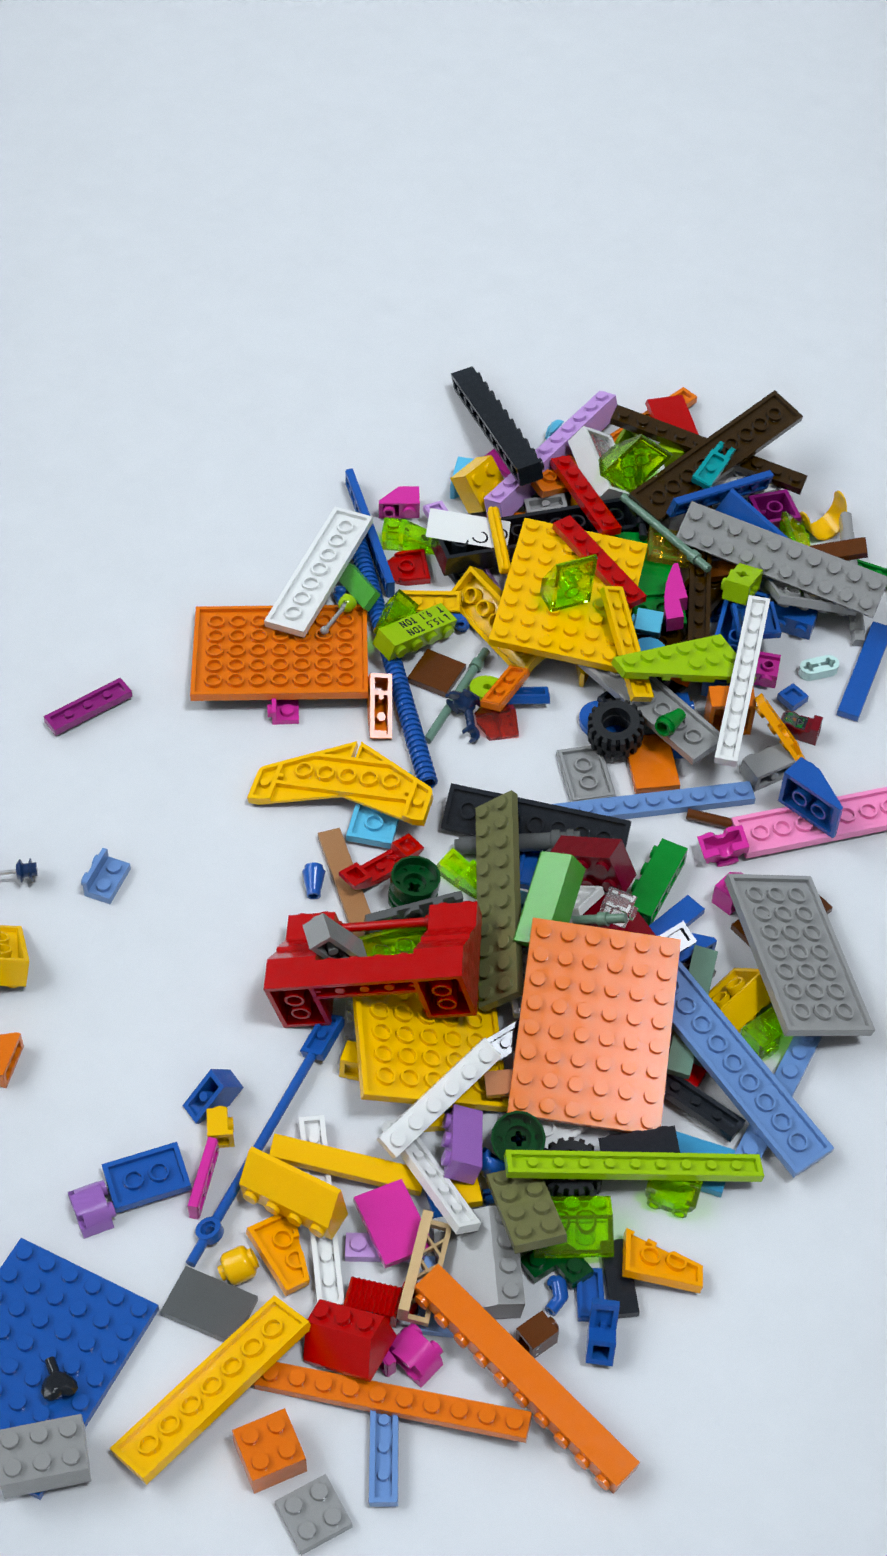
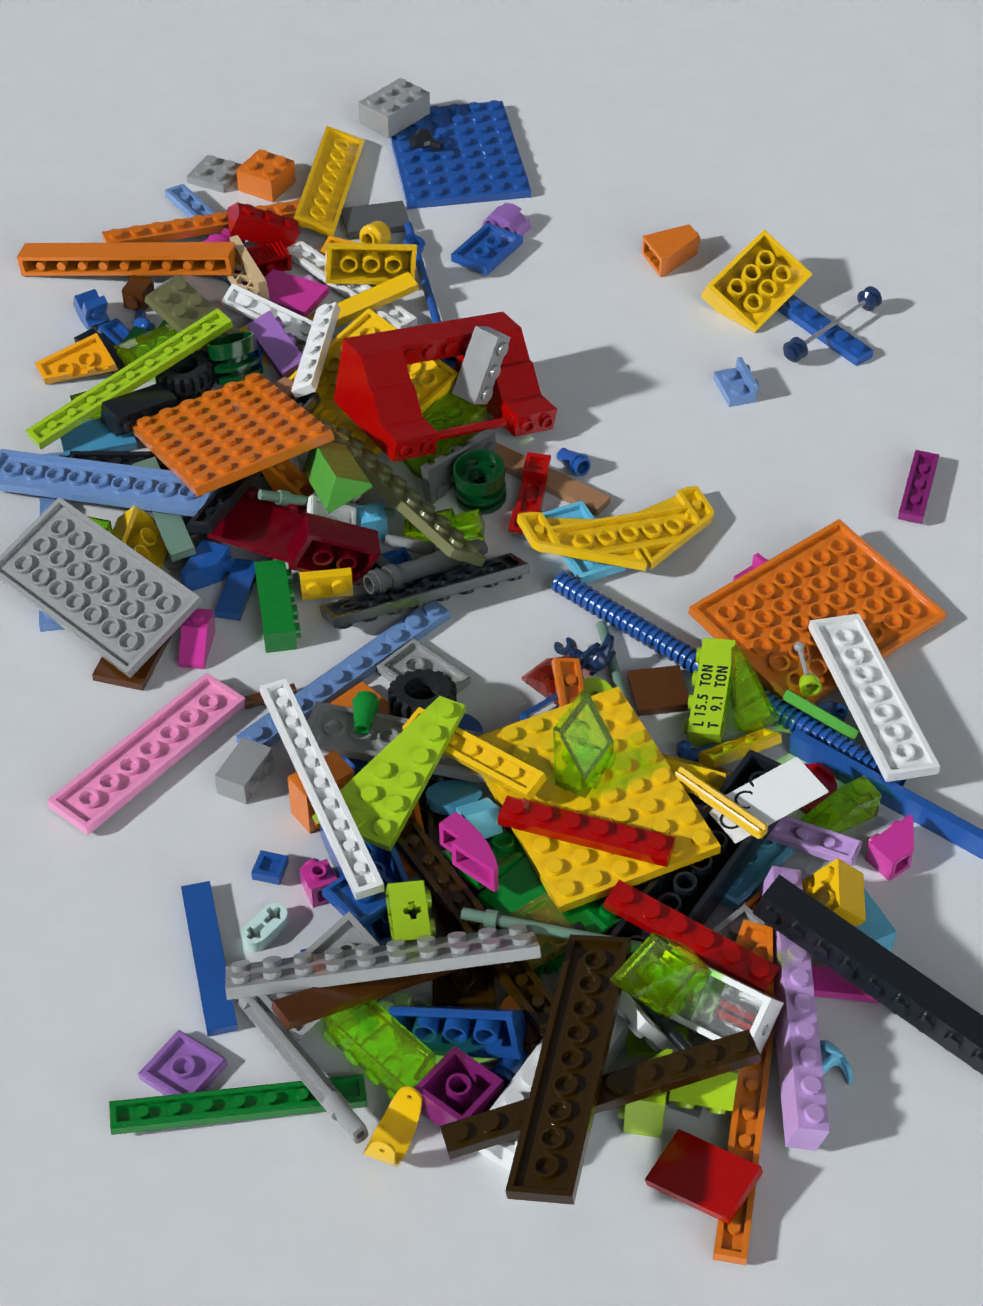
camera: 145 degrees right, 5 degrees down
(203, 1178) = (447, 263): dark pink tile -> none
(215, 1089) = (490, 300): blue slope -> none
(220, 1126) = (467, 289): yellow brick -> none
(379, 706) = (676, 618): slope -> none
(619, 902) = (279, 526): clear brick -> none
(712, 466) = (558, 1023): teal hinge -> none
(717, 493) = (525, 1019): blue tile -> none
(724, 848) = (237, 667): dark pink cylinder -> none
(777, 727) = (248, 787): light orange wing -> none
(803, 727) = (238, 837): dark red leg -> none
(810, 796) = (168, 725): blue slope -> none

